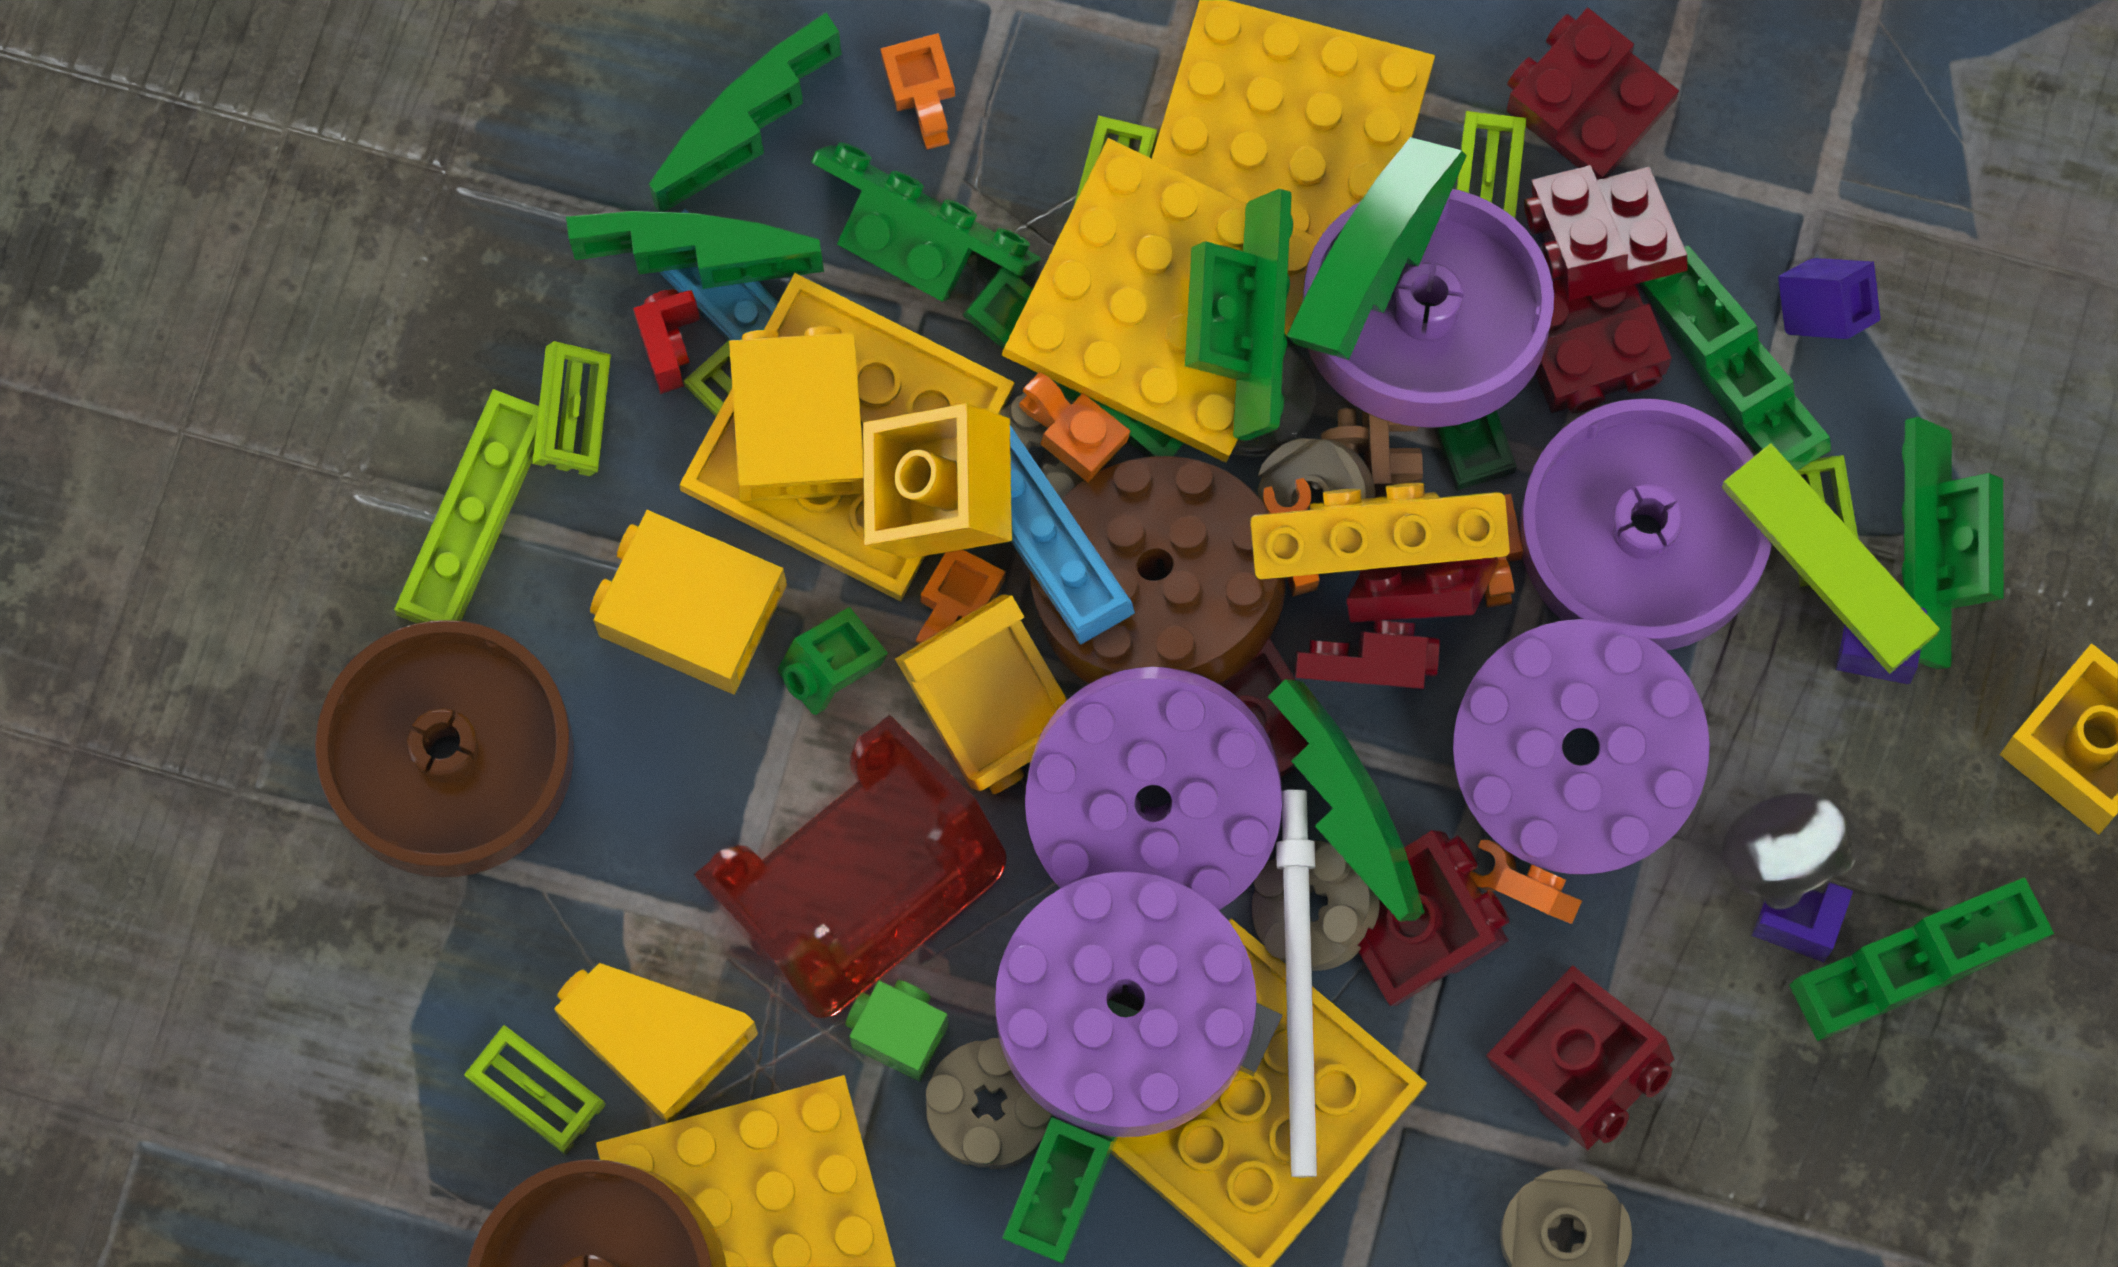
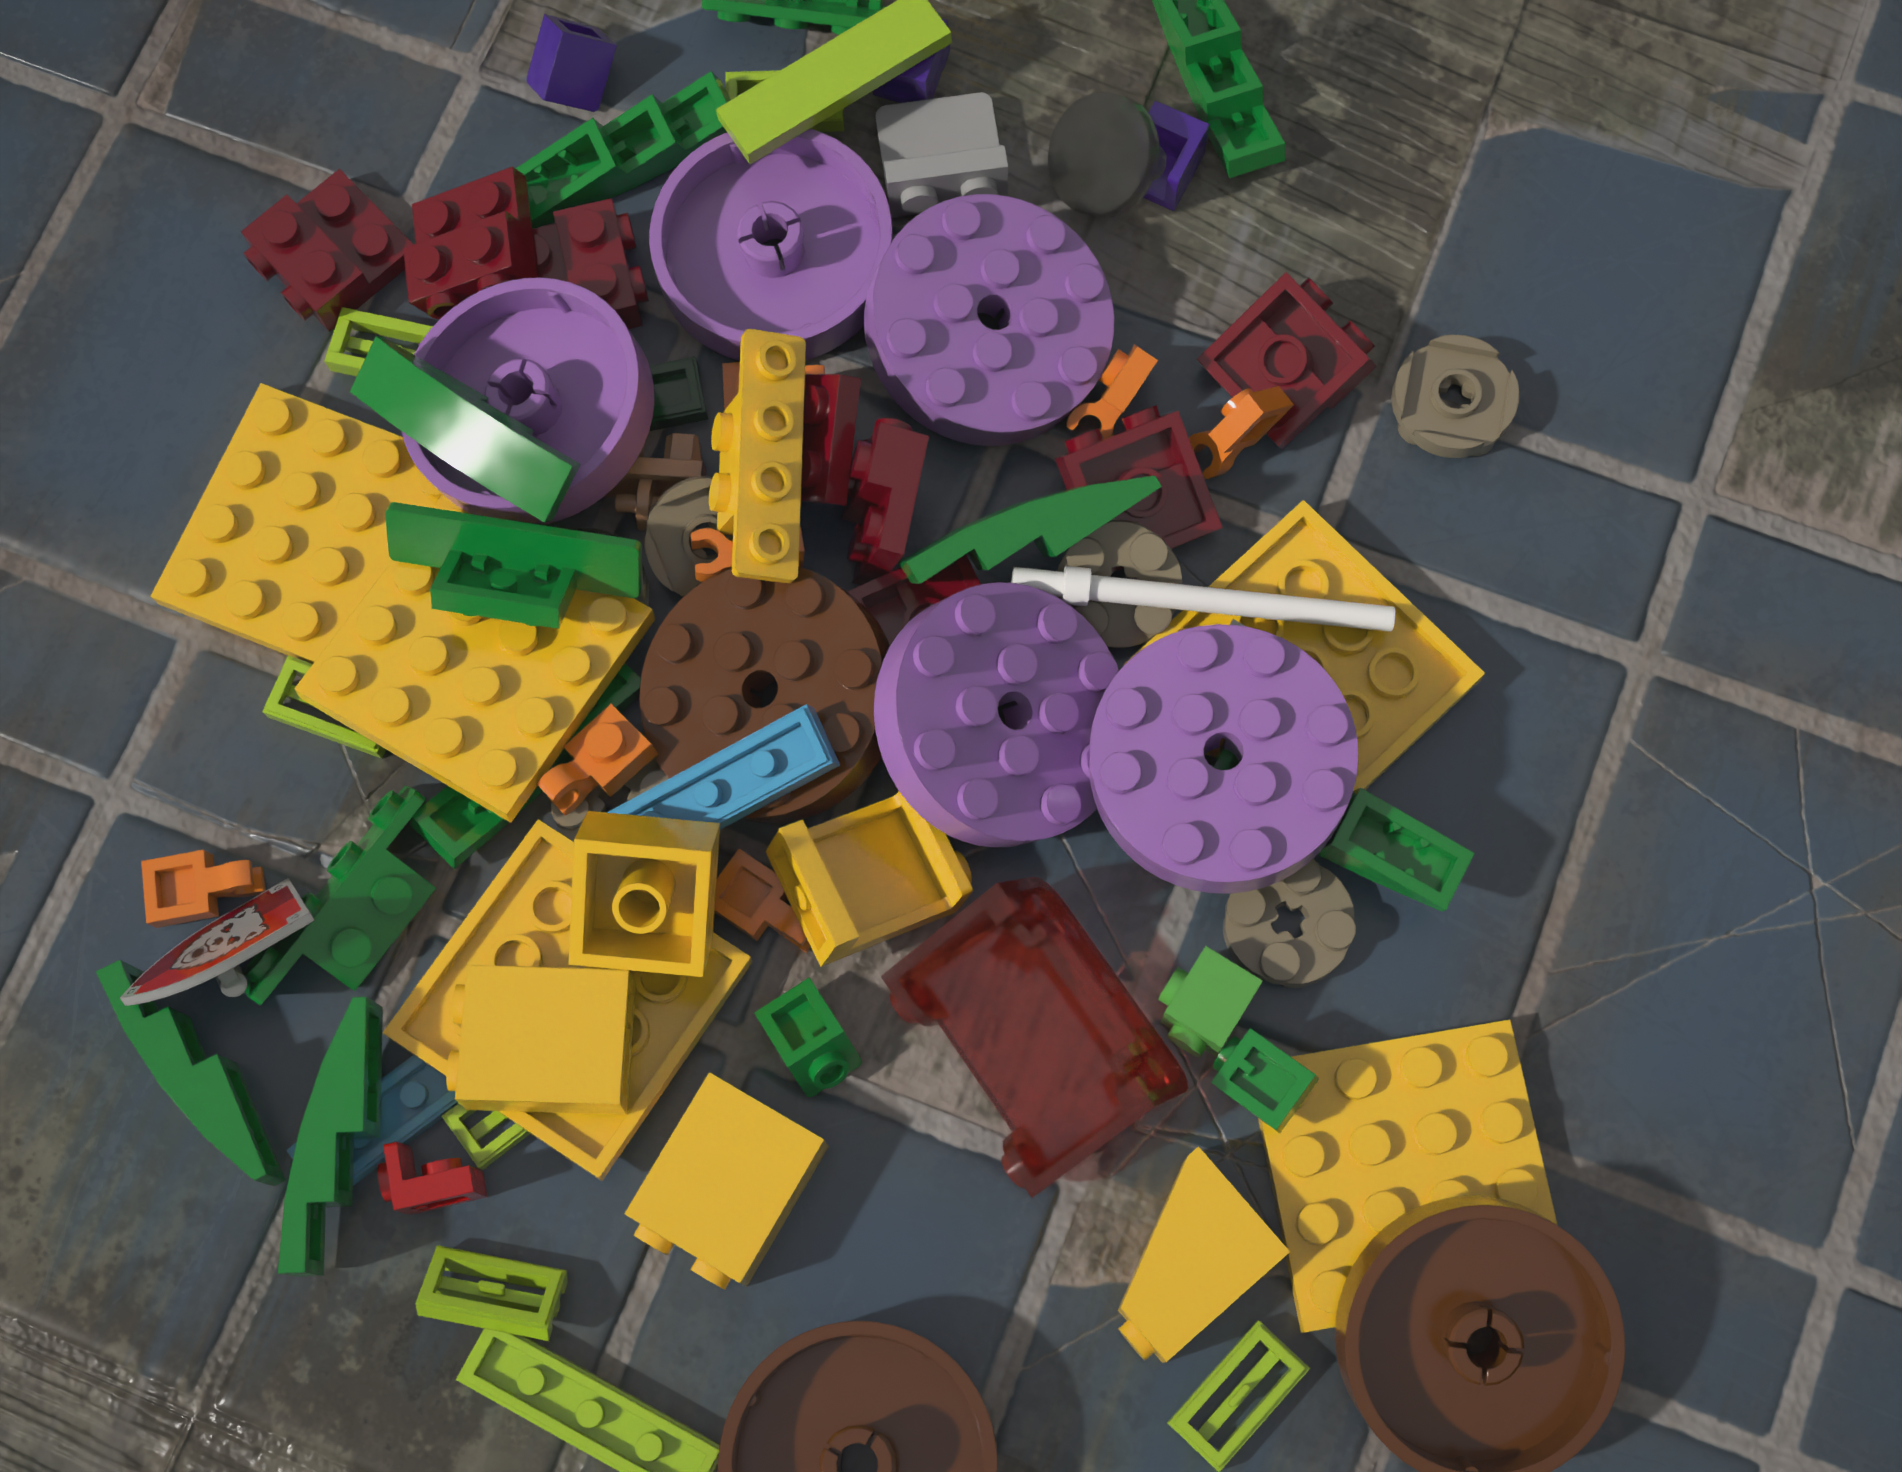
camera: 80 degrees left, 0 degrees up
(824, 1078) = (1262, 1079): none -> green bracket
(862, 121) = (222, 946): none -> shield
(1500, 1012) = (1246, 421): none -> orange plate
(1775, 684) = (940, 151): none -> light grey bracket

